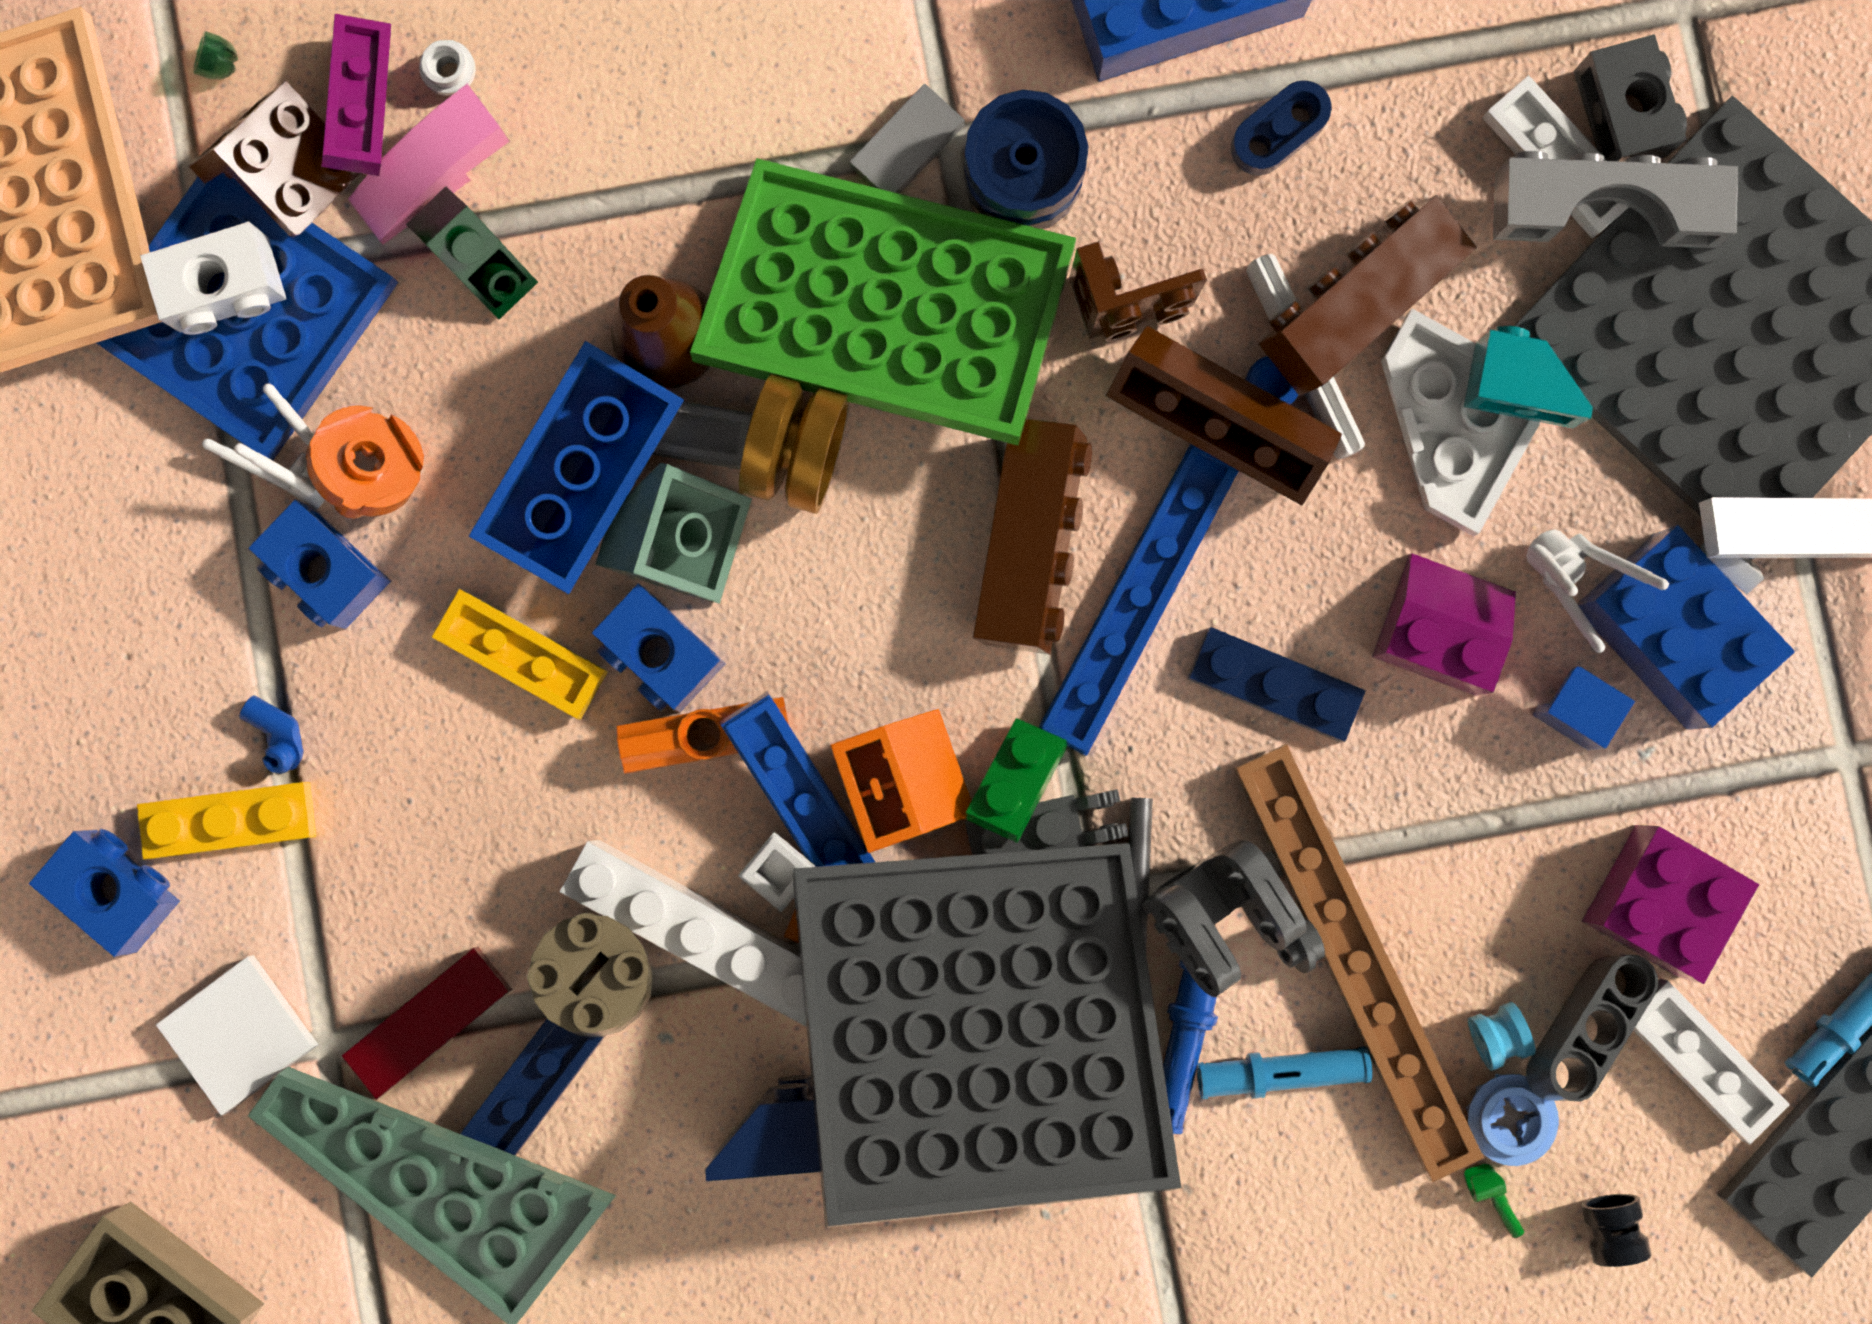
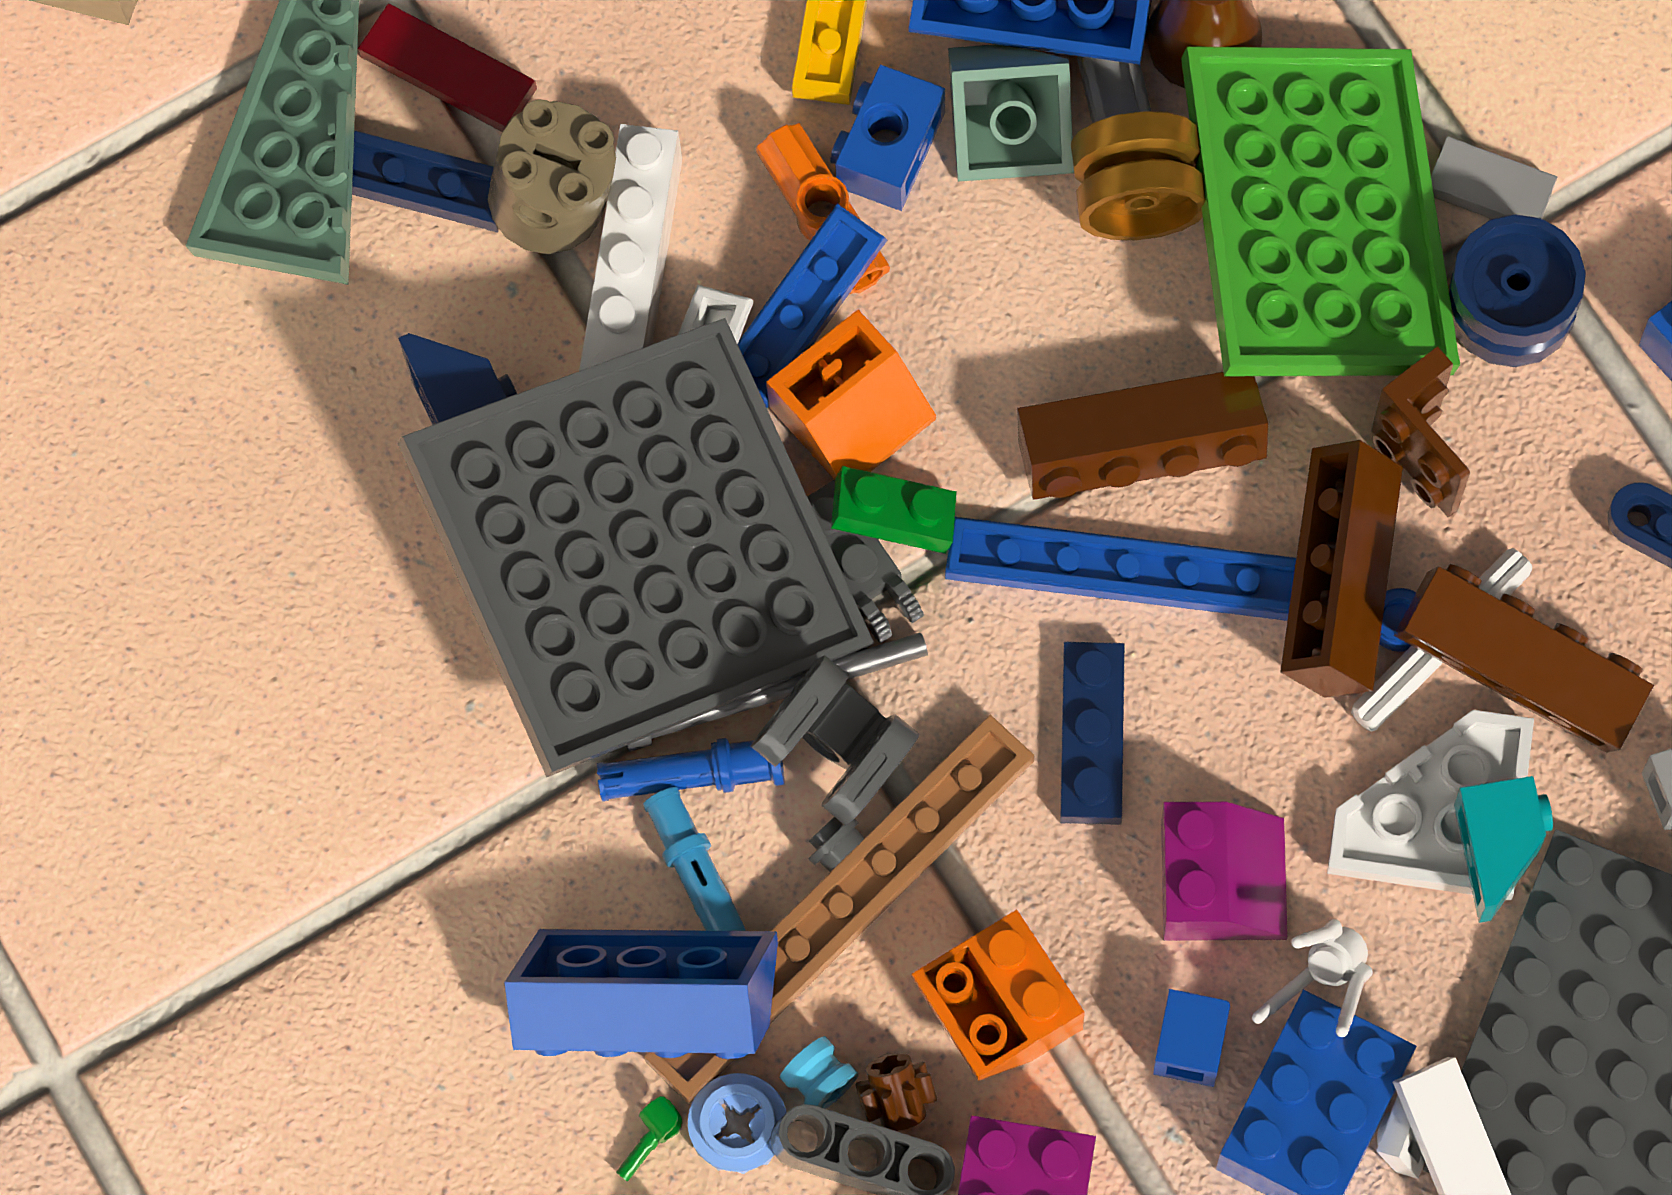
camera: 70 degrees right, 15 degrees down
(1383, 1165) = (643, 992): none -> slope
(1497, 859) = (1000, 998): none -> orange slope
(1541, 976) = (896, 1091): none -> reddish brown gear

